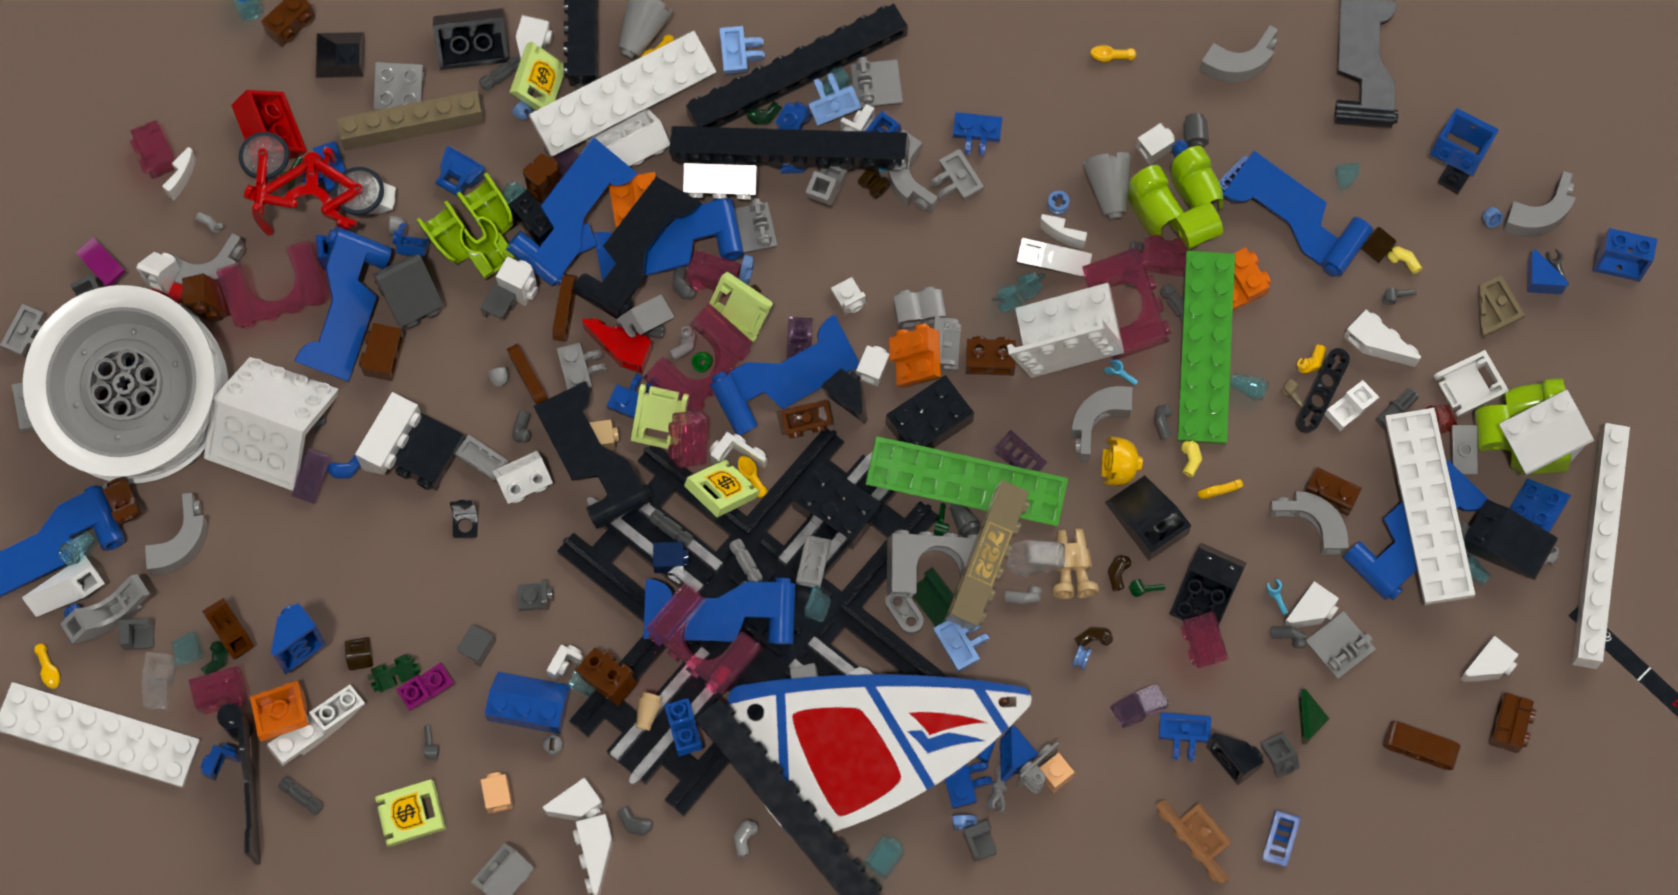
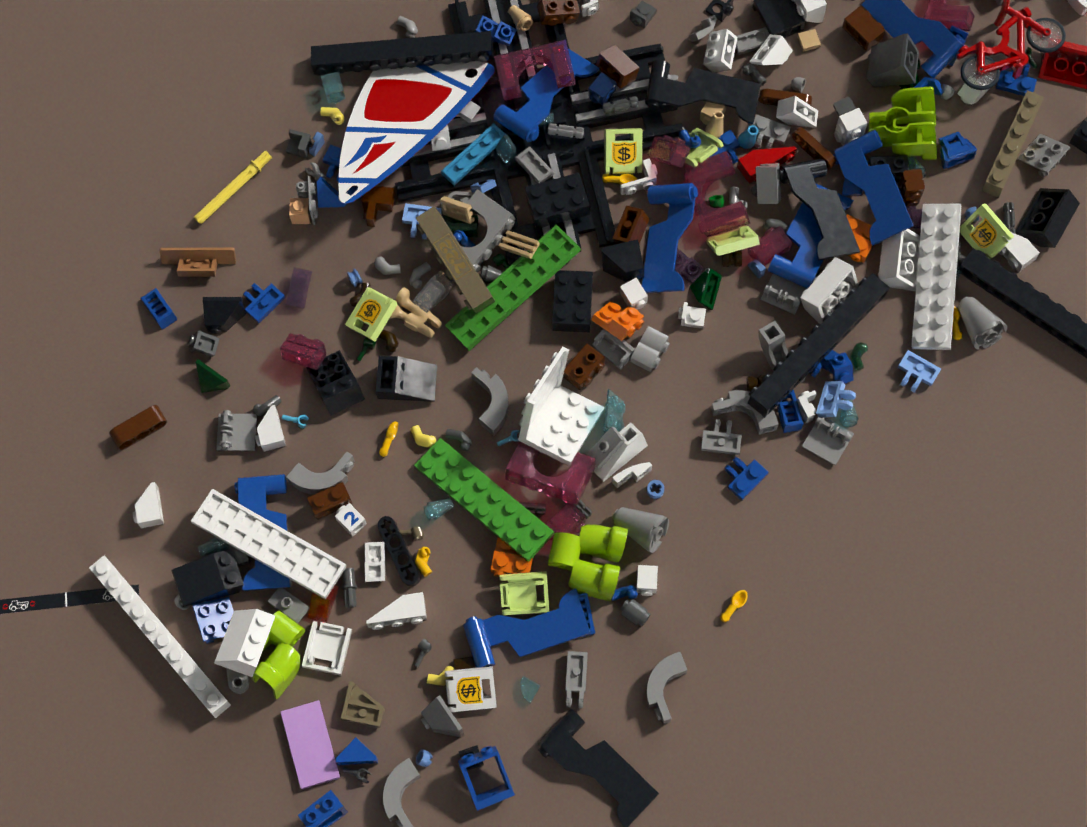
camera: 130 degrees right, 0 degrees up
(434, 403) = (809, 40): none -> tan tile
(487, 422) = (772, 52): none -> white slope
(506, 513) = (708, 26): none -> light grey slope
(537, 352) = (797, 112): none -> white slope
(604, 378) = (748, 138): none -> dark azure cone
(620, 414) = (715, 125): none -> tan cone
(631, 558) = (617, 66): none -> reddish brown brick
(658, 429) = (691, 142): none -> blue arm
(798, 68) = (874, 397): black brick -> none
(808, 303) = (706, 287): none -> dark green slope
(848, 637) = (473, 154): none -> dark azure tile
(876, 601) = (484, 187): none -> medium blue tile
(912, 833) = (334, 113): none -> light yellow arm
(919, 528) = (507, 239): none -> tan tile
(926, 604) = (452, 208): none -> tan tile
(949, 576) = (463, 239): none -> blue arm
(1017, 442) = (506, 332): clear purple slope -> none
(1044, 637) = (385, 268): none -> light grey arm
(1060, 268) = (606, 447): none -> light grey plate
(1085, 871) = (234, 186): none -> light yellow axle
(1106, 603) = (374, 311): none -> yellowish green container
(1120, 462) = (451, 387): yellow cylinder -> none
(1268, 244) = (520, 593): none -> yellowish green container
(1300, 140) = (576, 676): none -> light grey hinge
(1333, 456) = (350, 519): none -> white brick
(1398, 222) = (467, 690): none -> white container
(1447, 223) = (440, 719): none -> light grey slope
(1512, 723) = (105, 490): reddish brown brick -> none
(1570, 328) = (310, 744): none -> lavender tile

